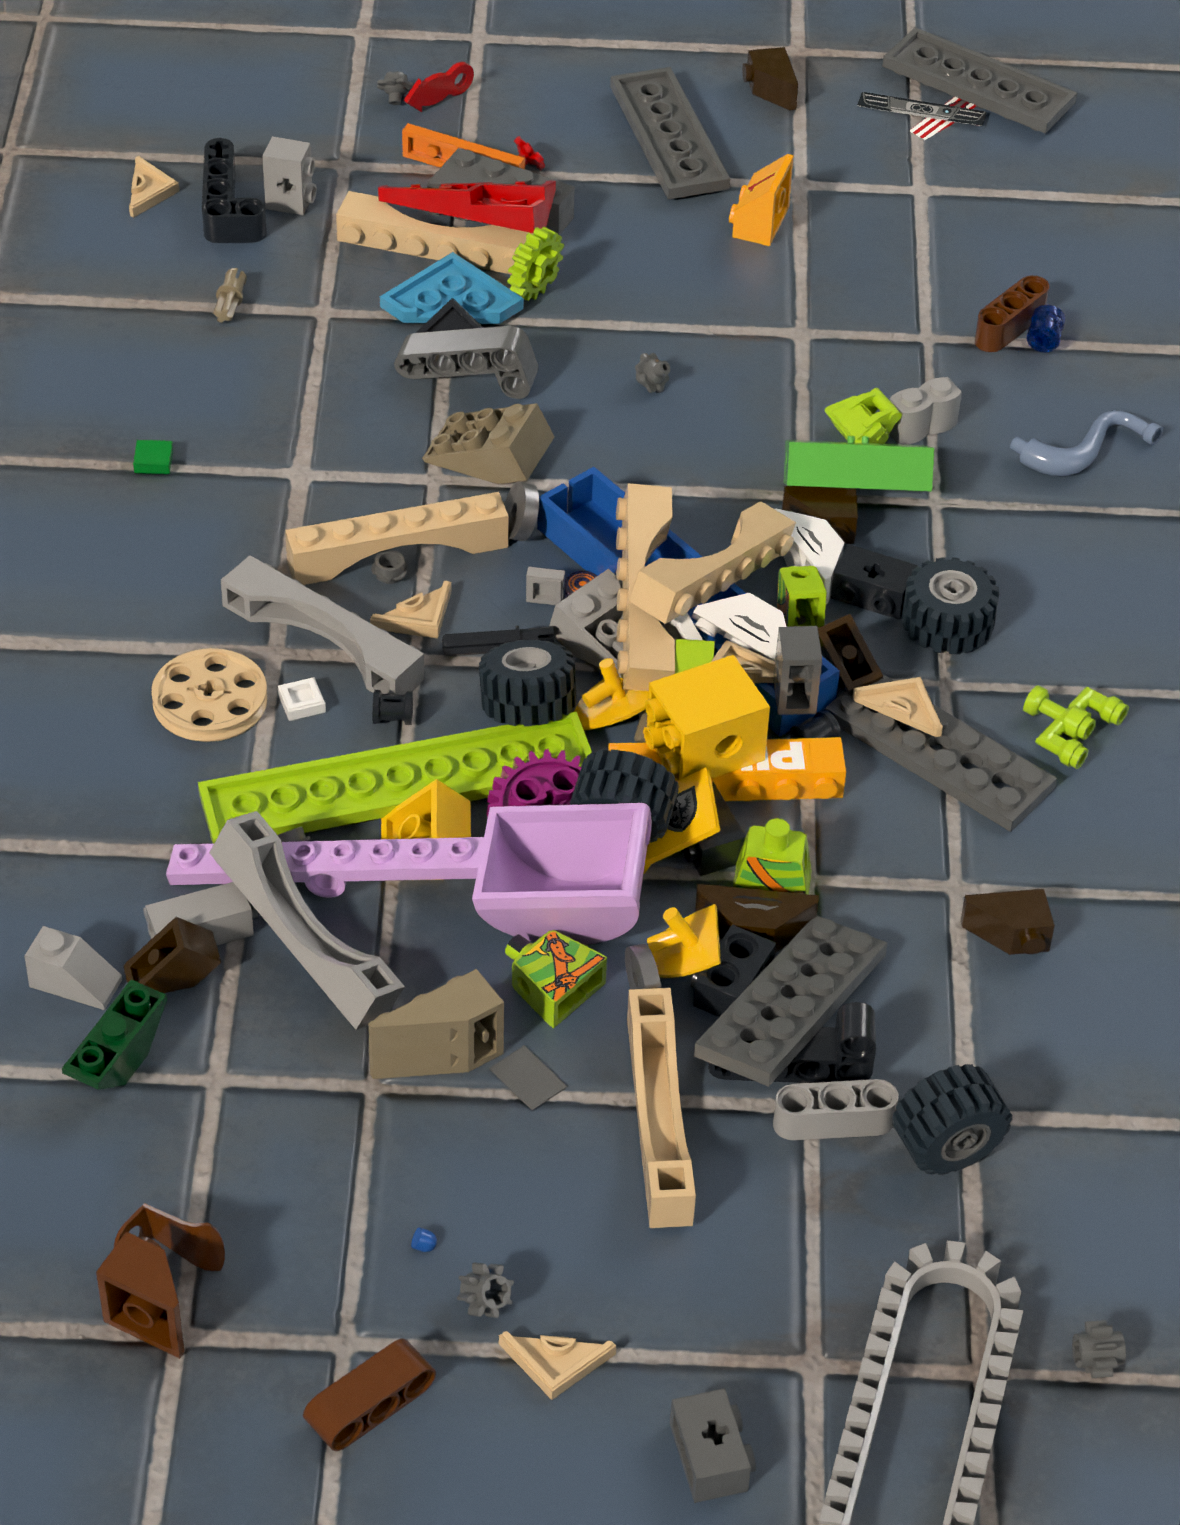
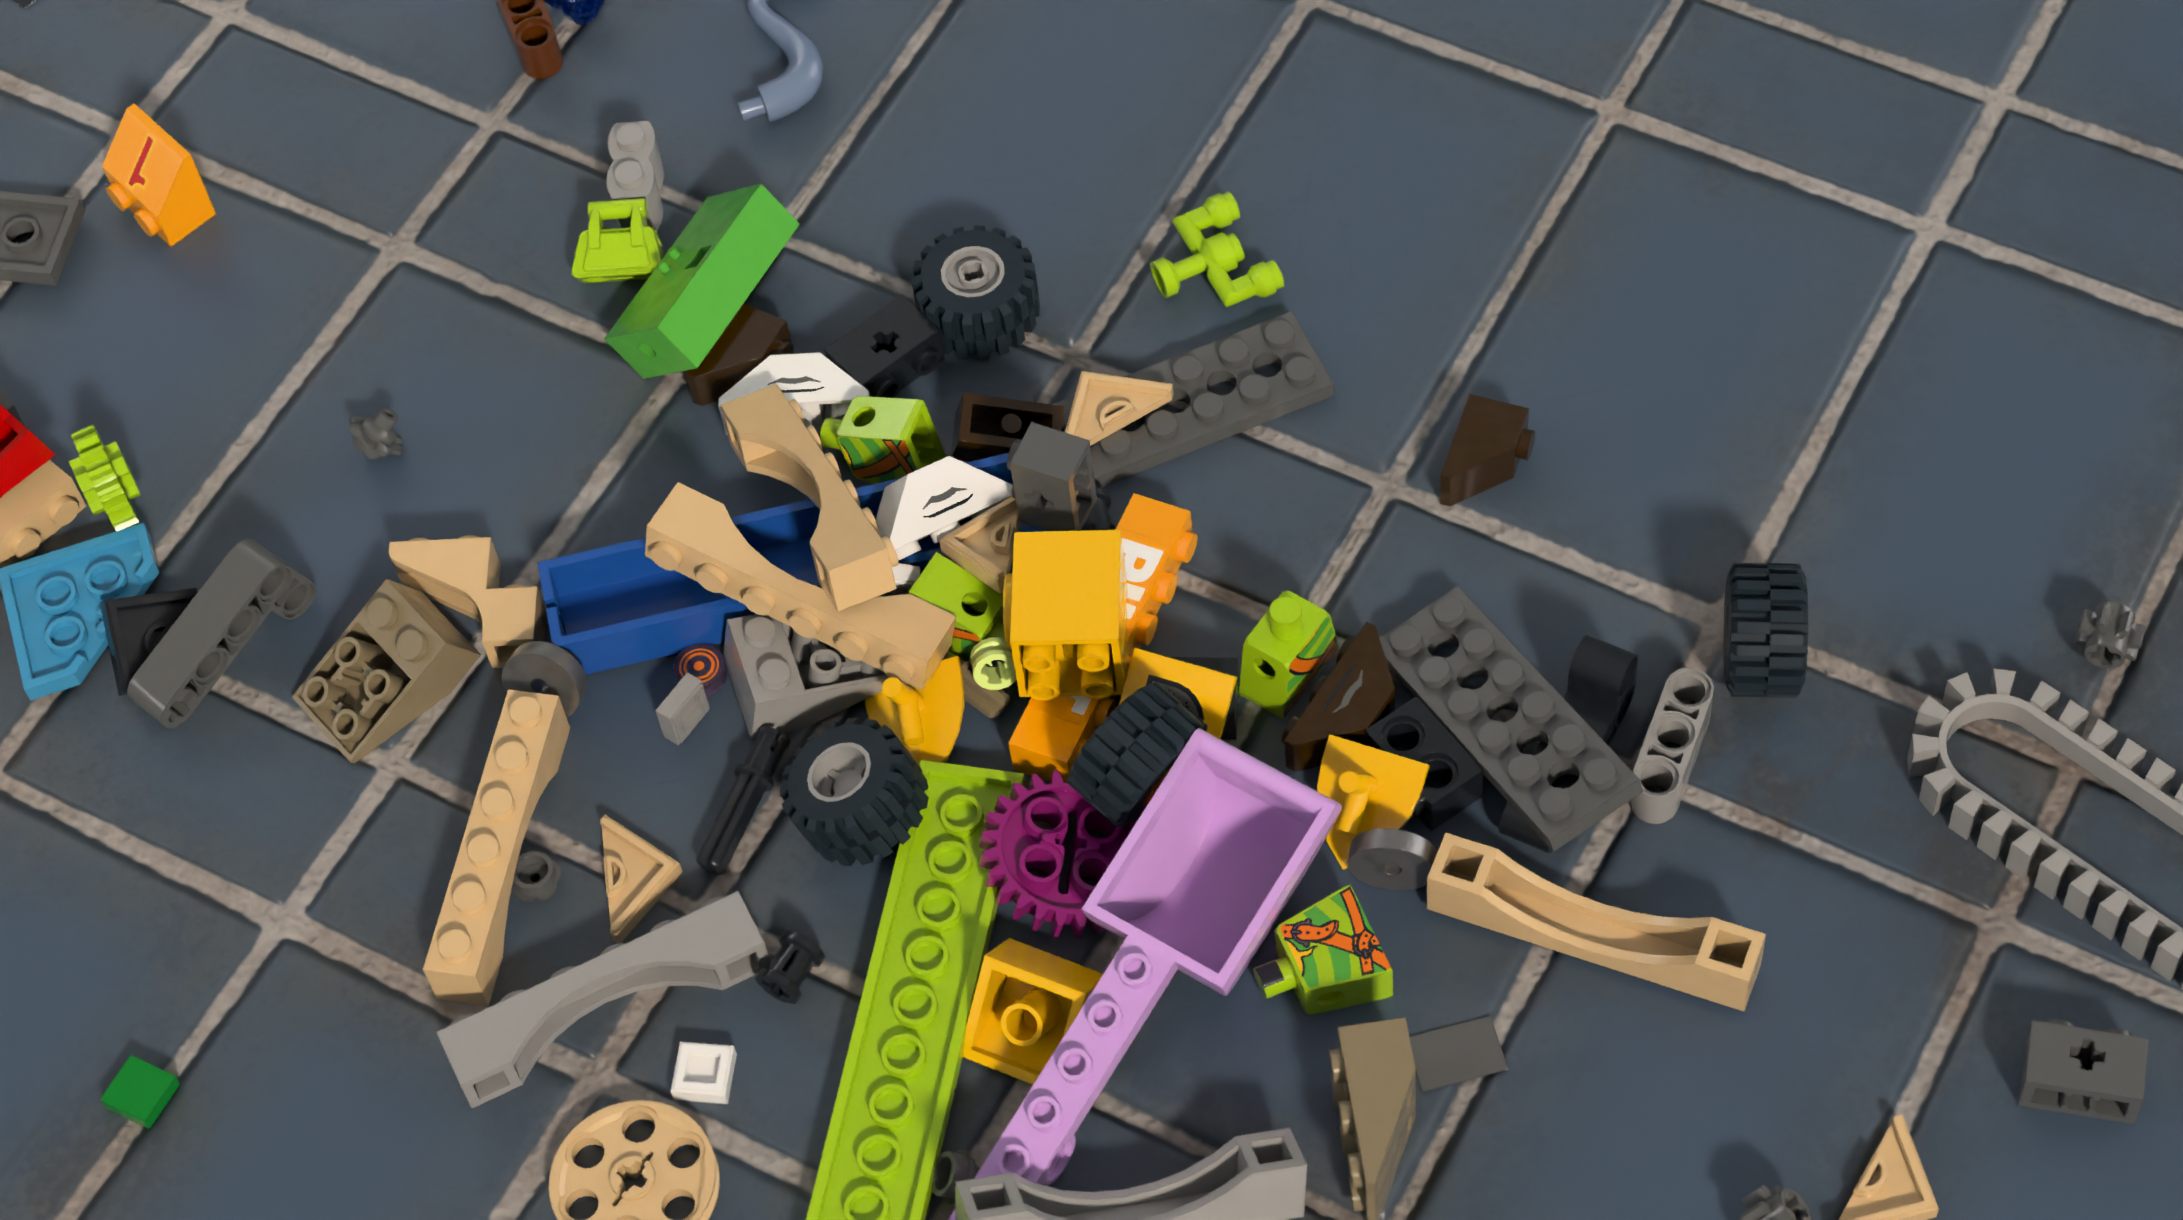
camera: 55 degrees left, 10 degrees up
(577, 452) = (467, 579): none -> tan arch

